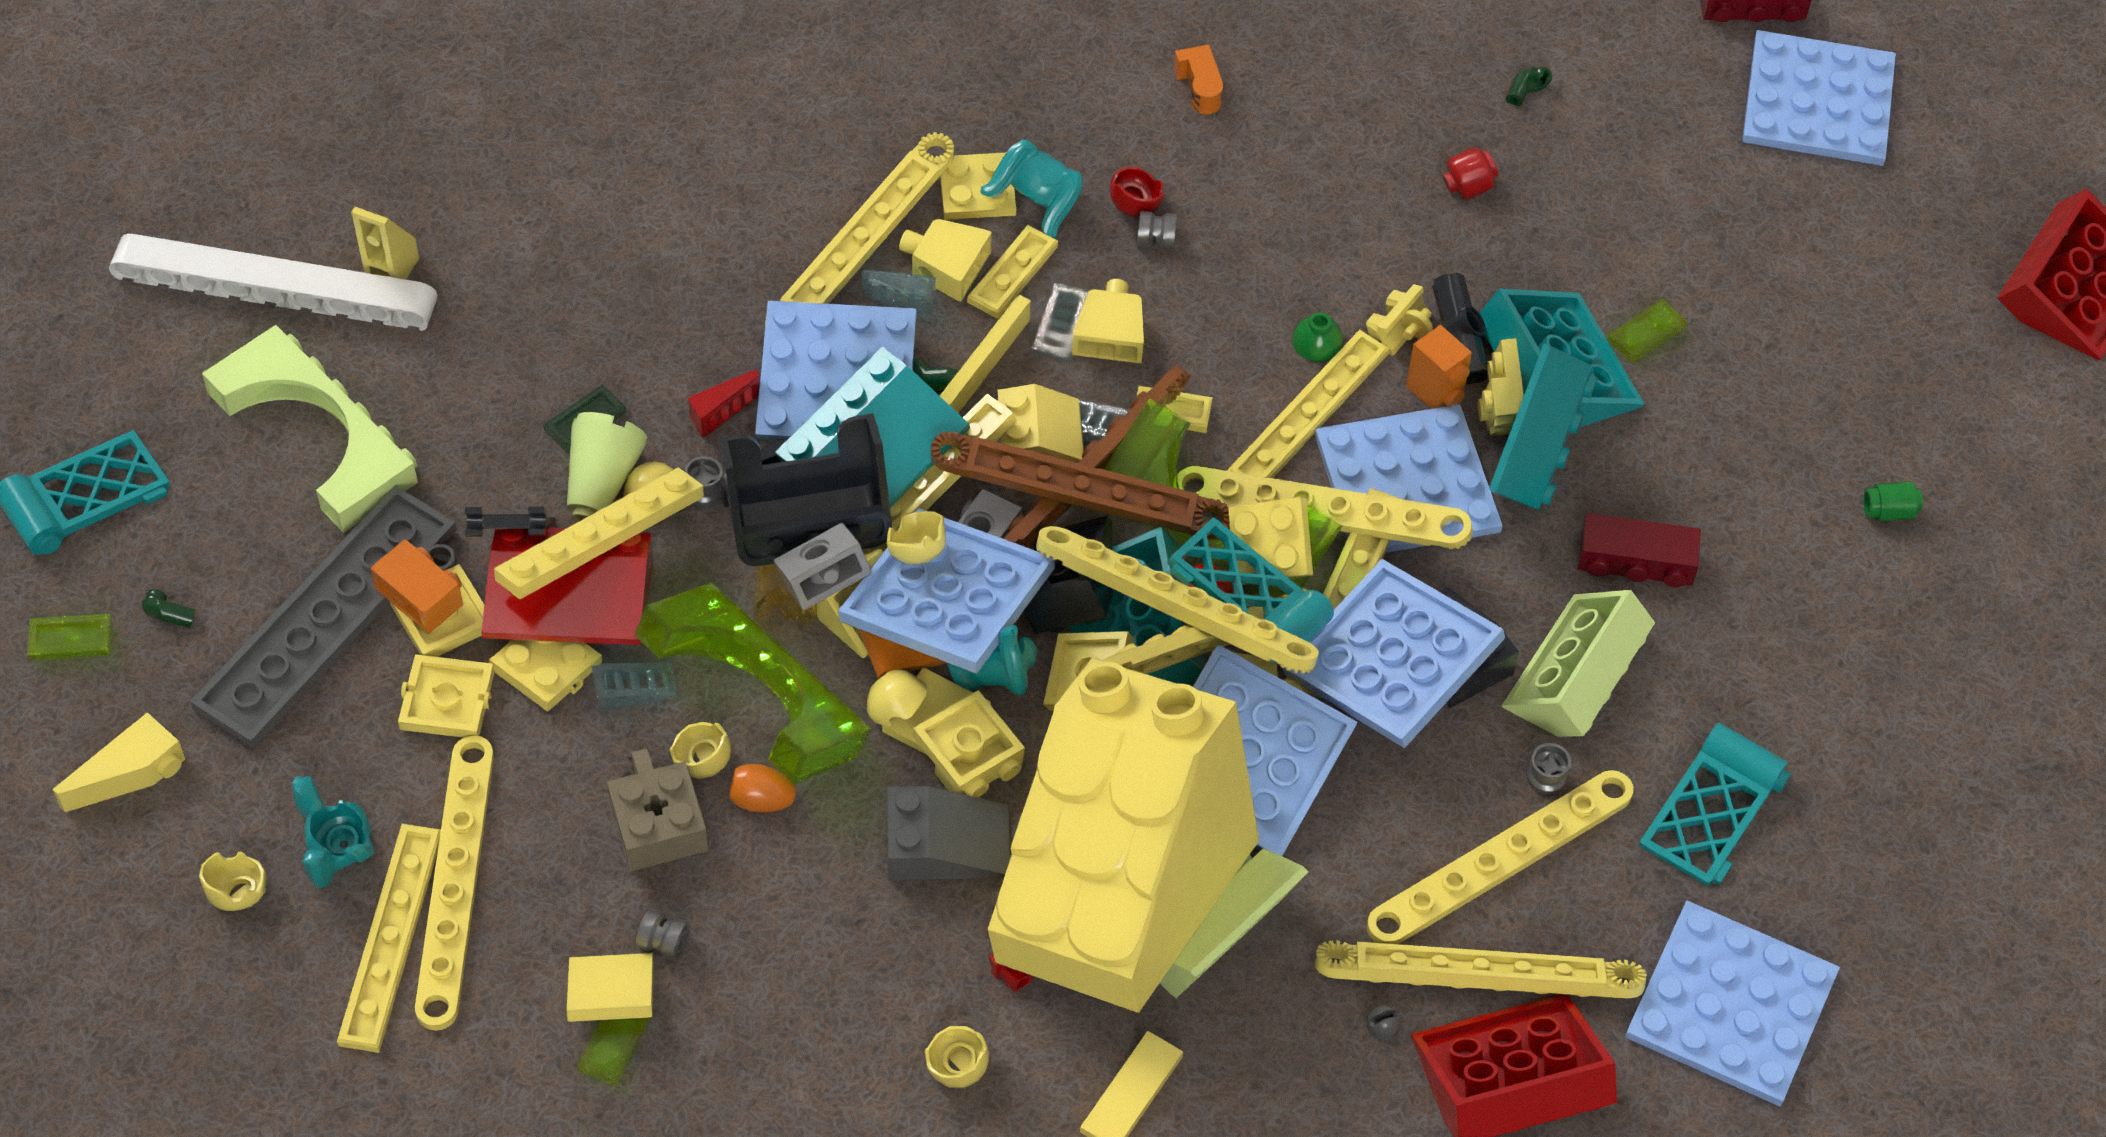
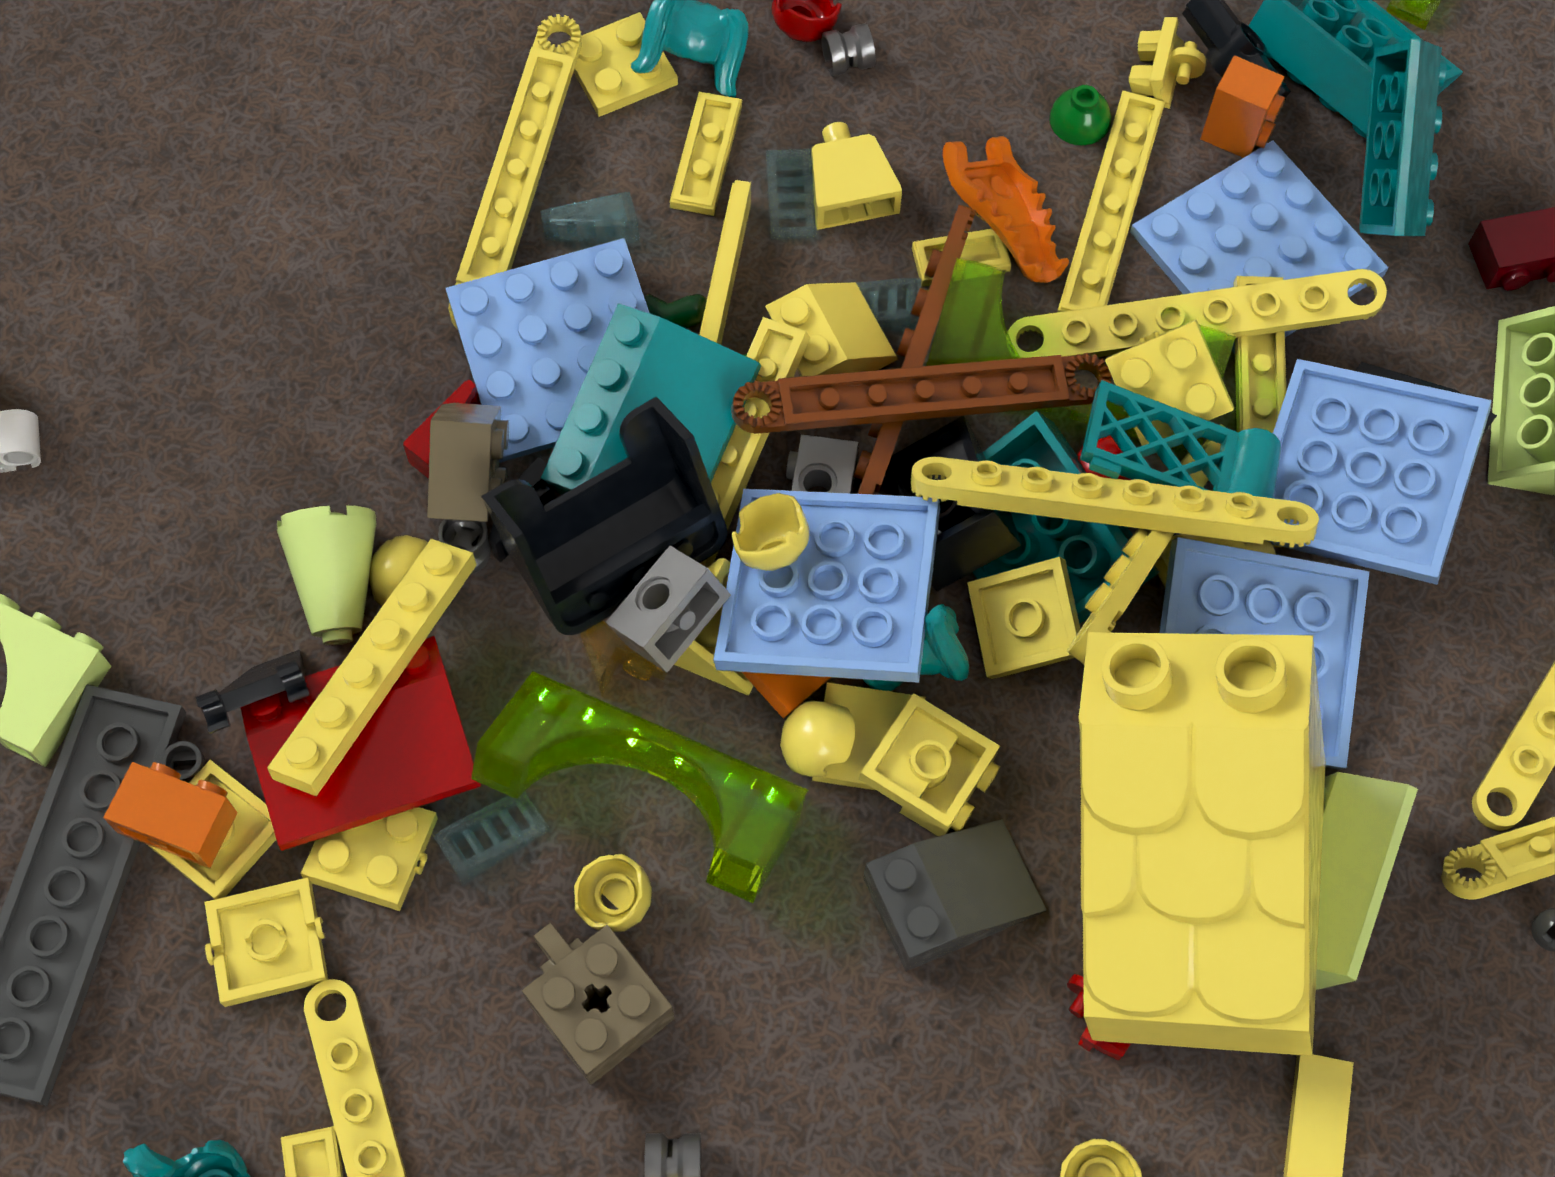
camera: 20 degrees left, 10 degrees up
(598, 401) = (290, 491): clear green tile -> none
(723, 411) = (465, 460): none -> dark tan hinge
(761, 789) = (706, 918): orange animal -> none
(948, 253) = (626, 157): light yellow torso -> none
(1224, 382) = (1009, 204): none -> orange animal
(1504, 391) = (1332, 106): light yellow plate -> none

